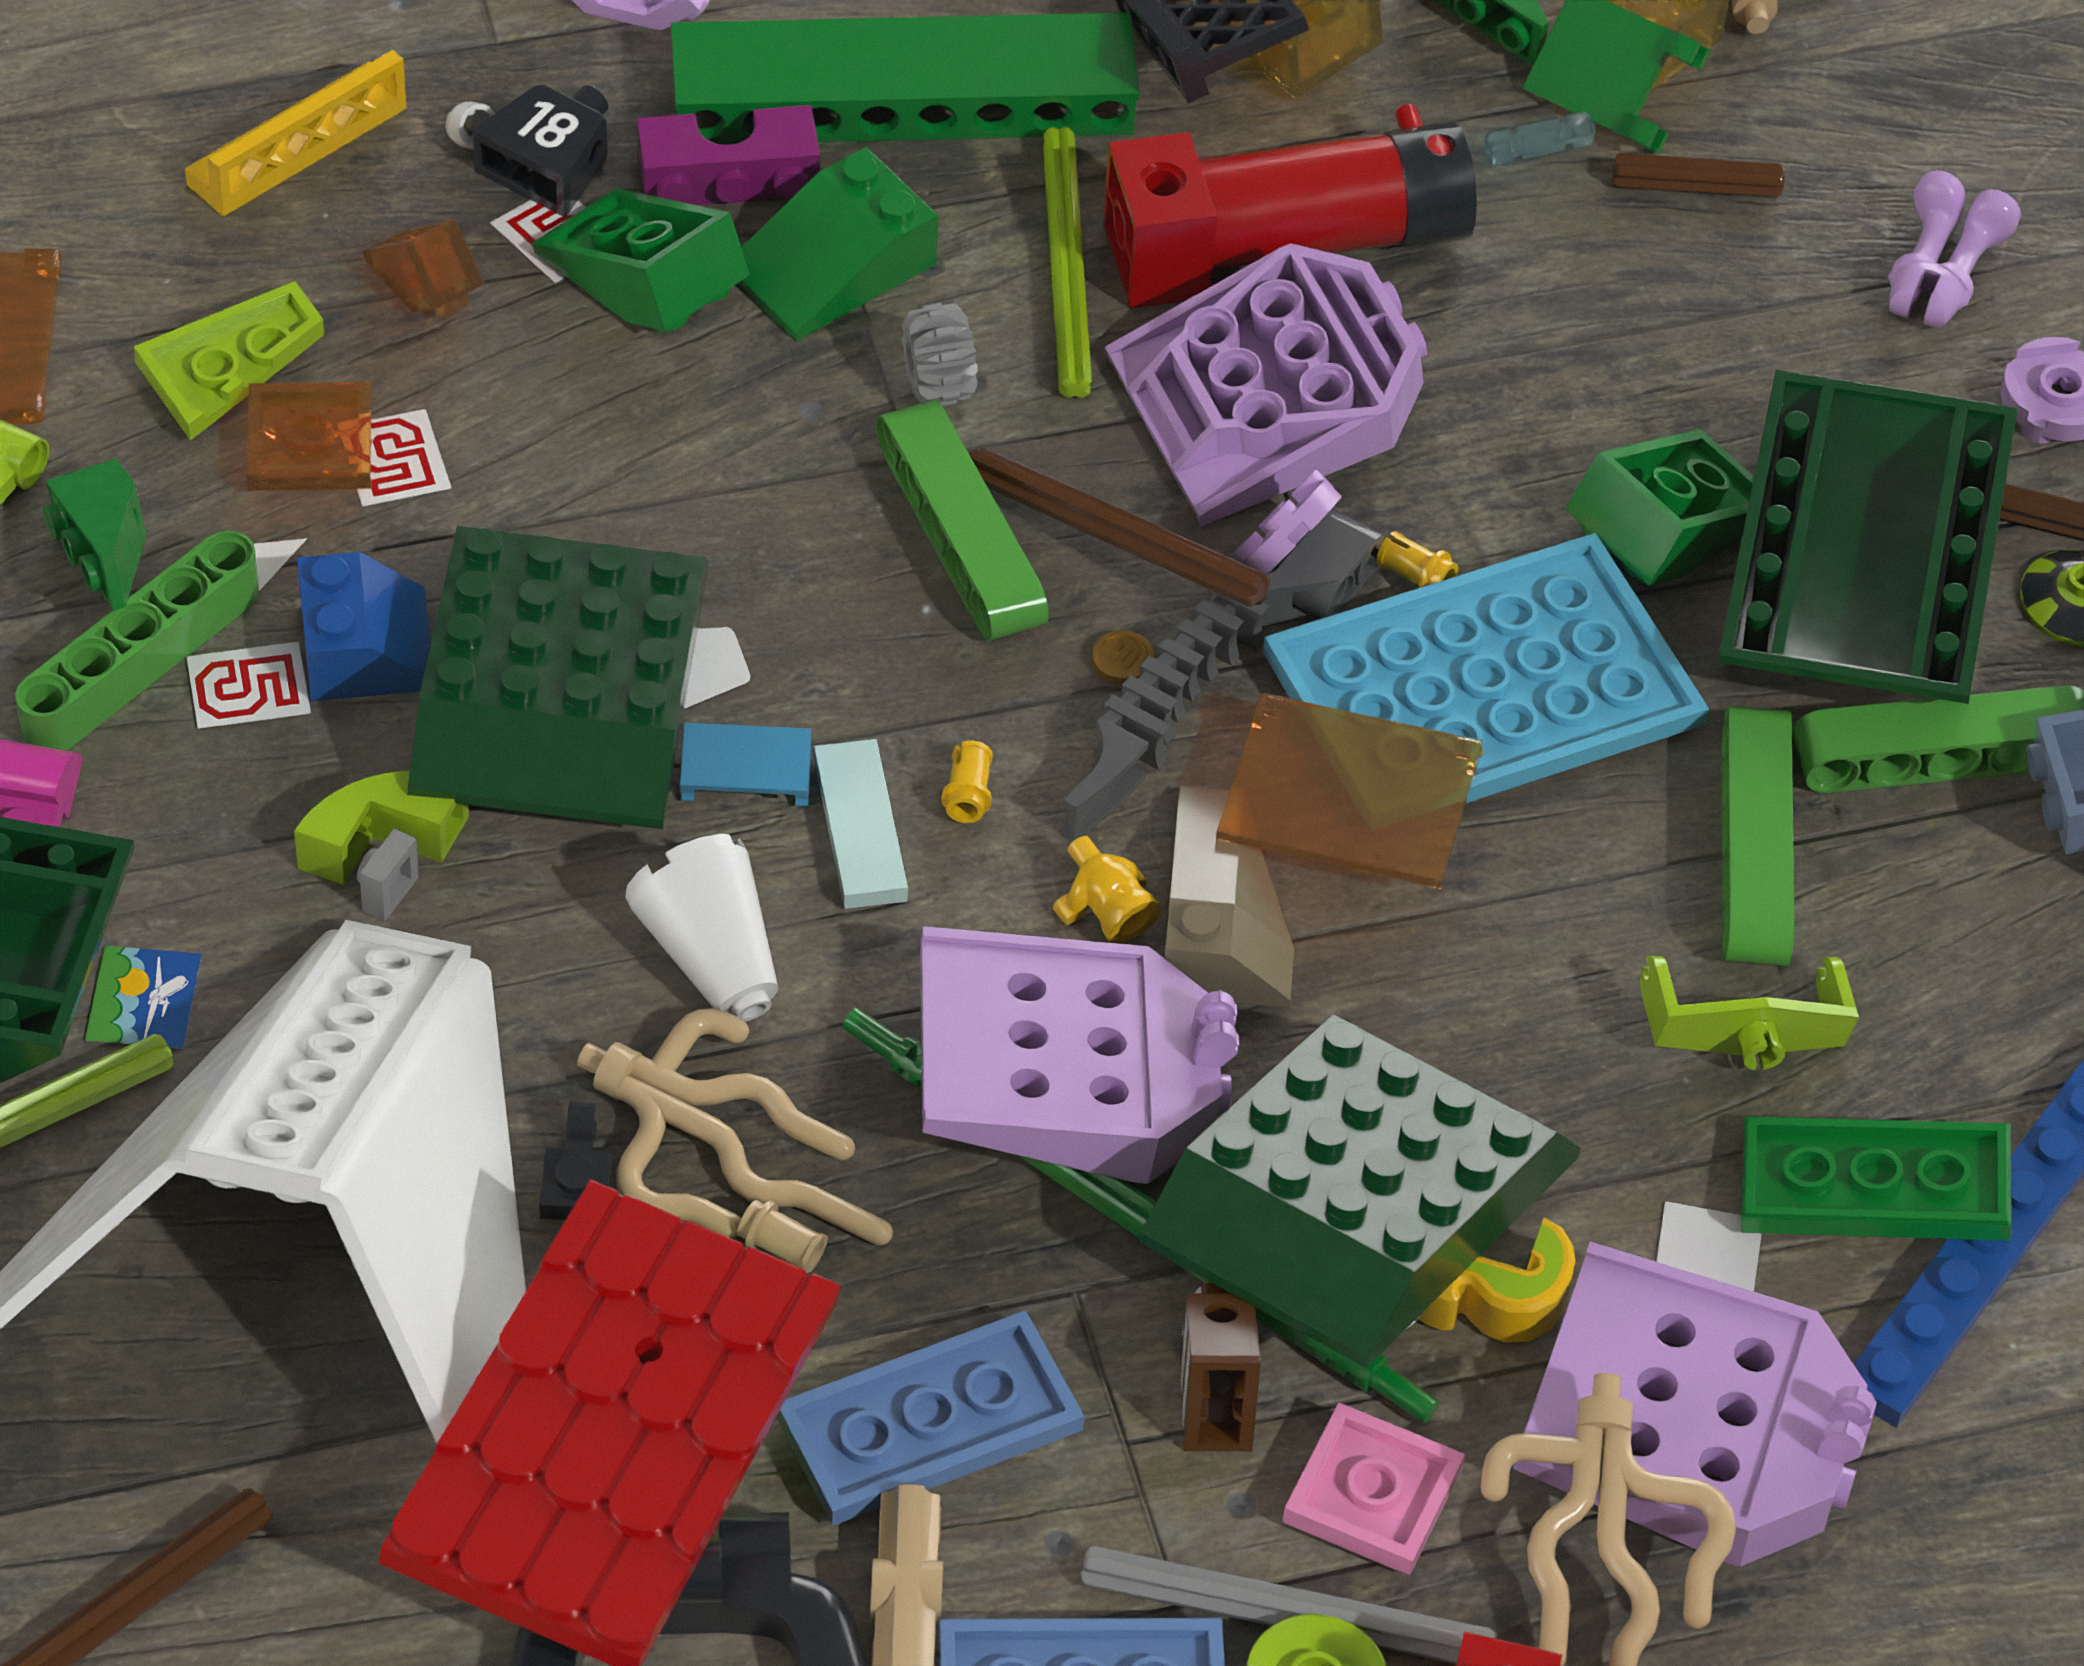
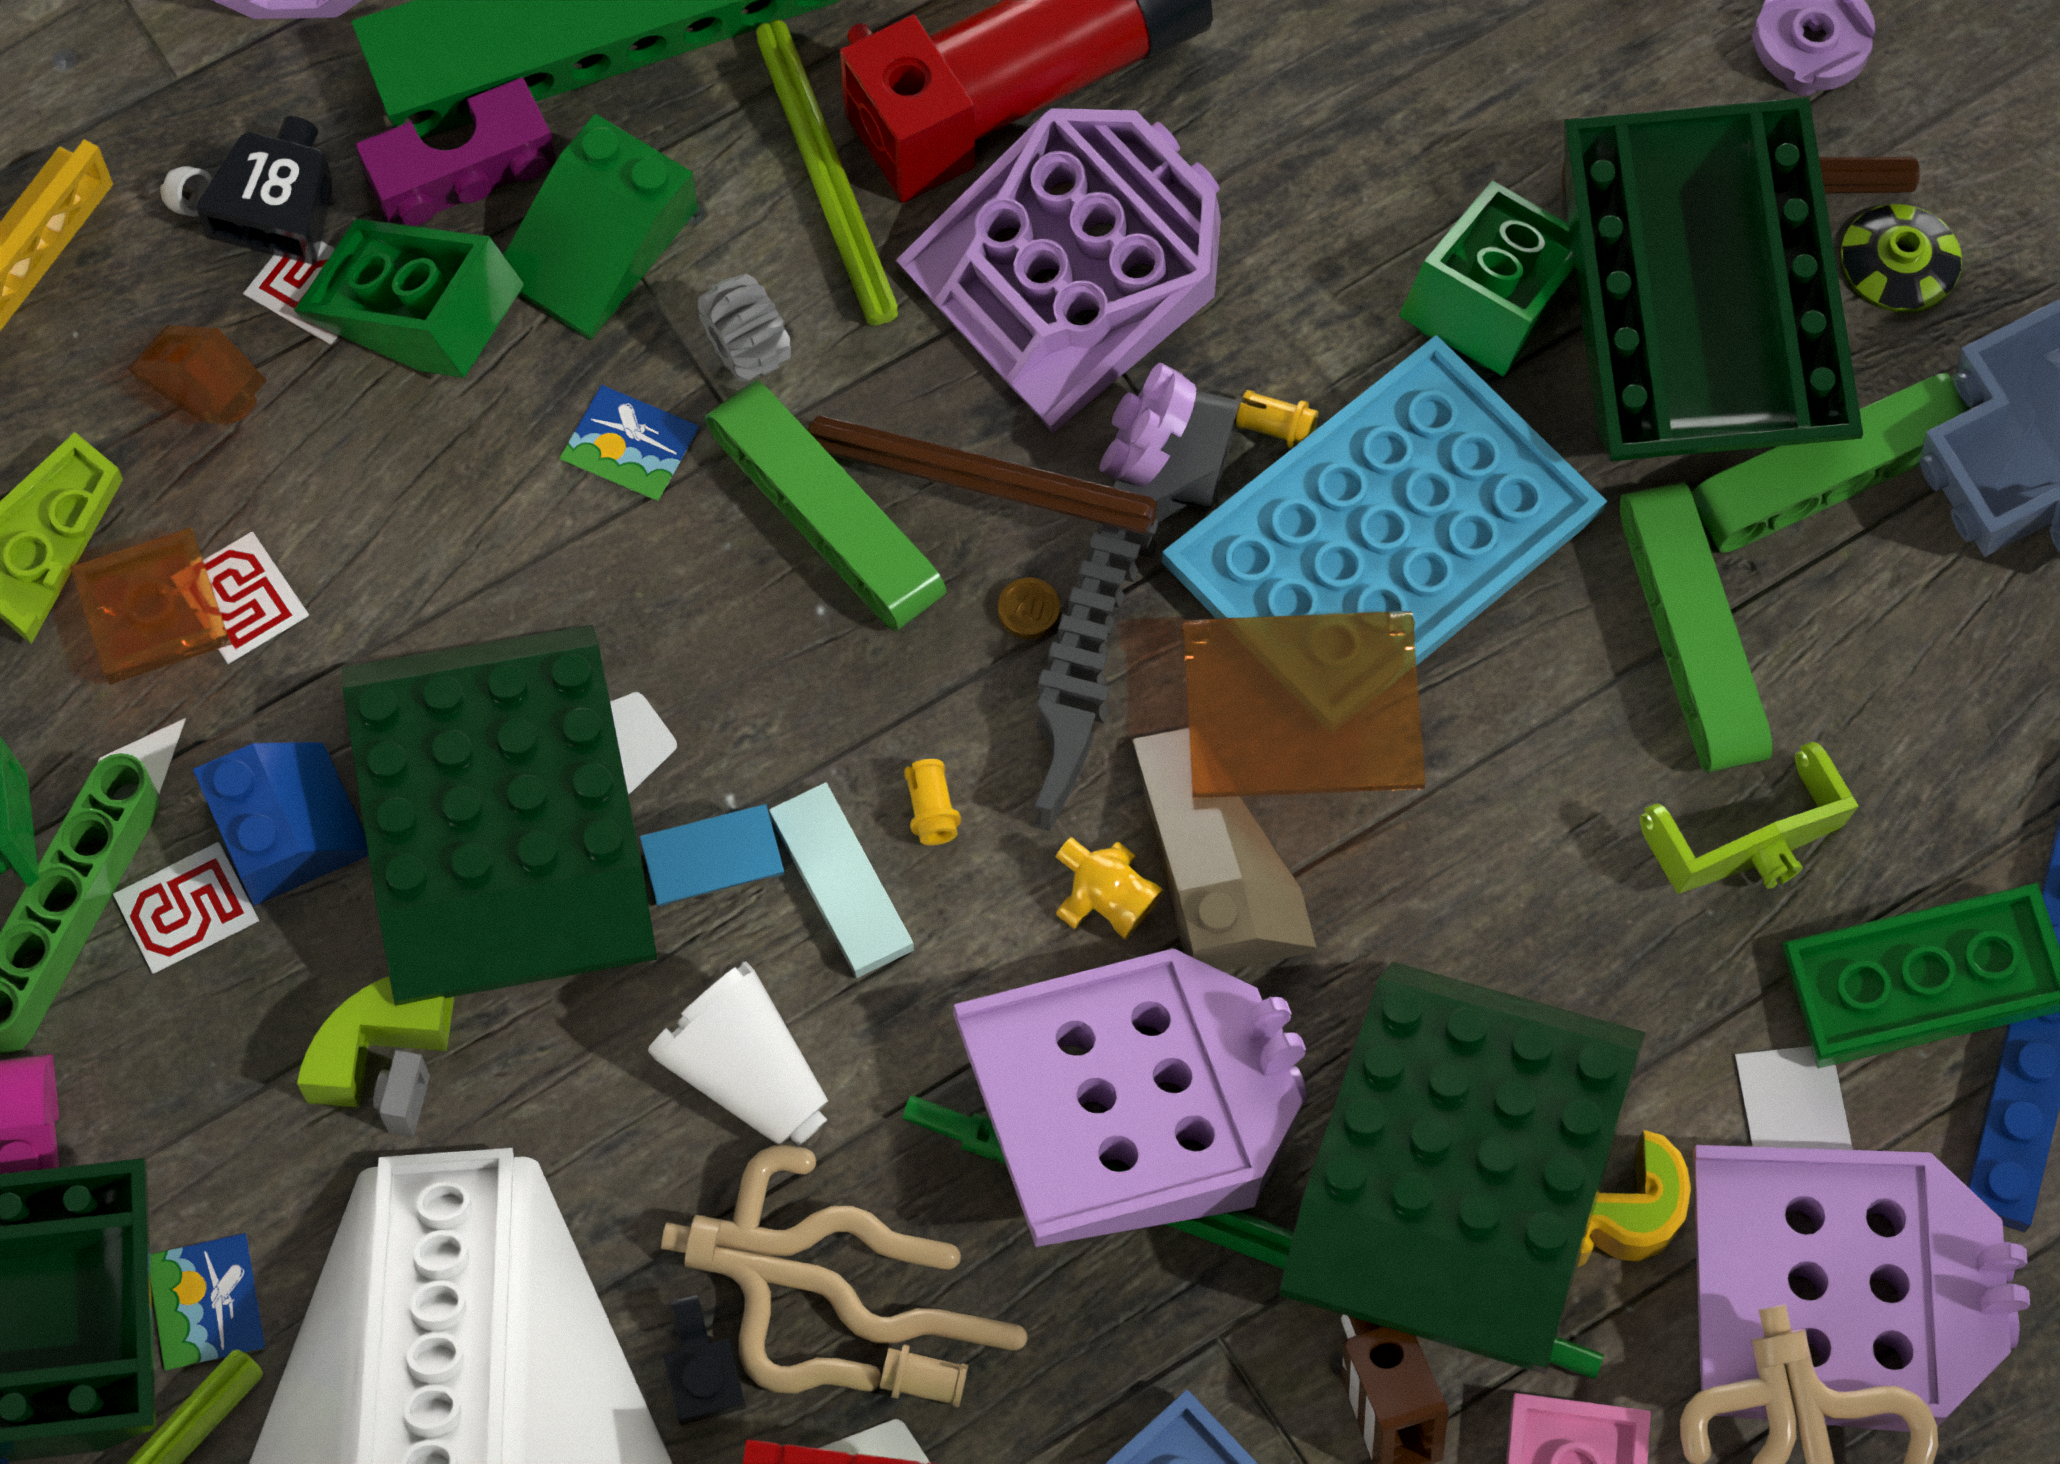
camera: 15 degrees left, 15 degrees up
(799, 430) = (629, 442): none -> sticker

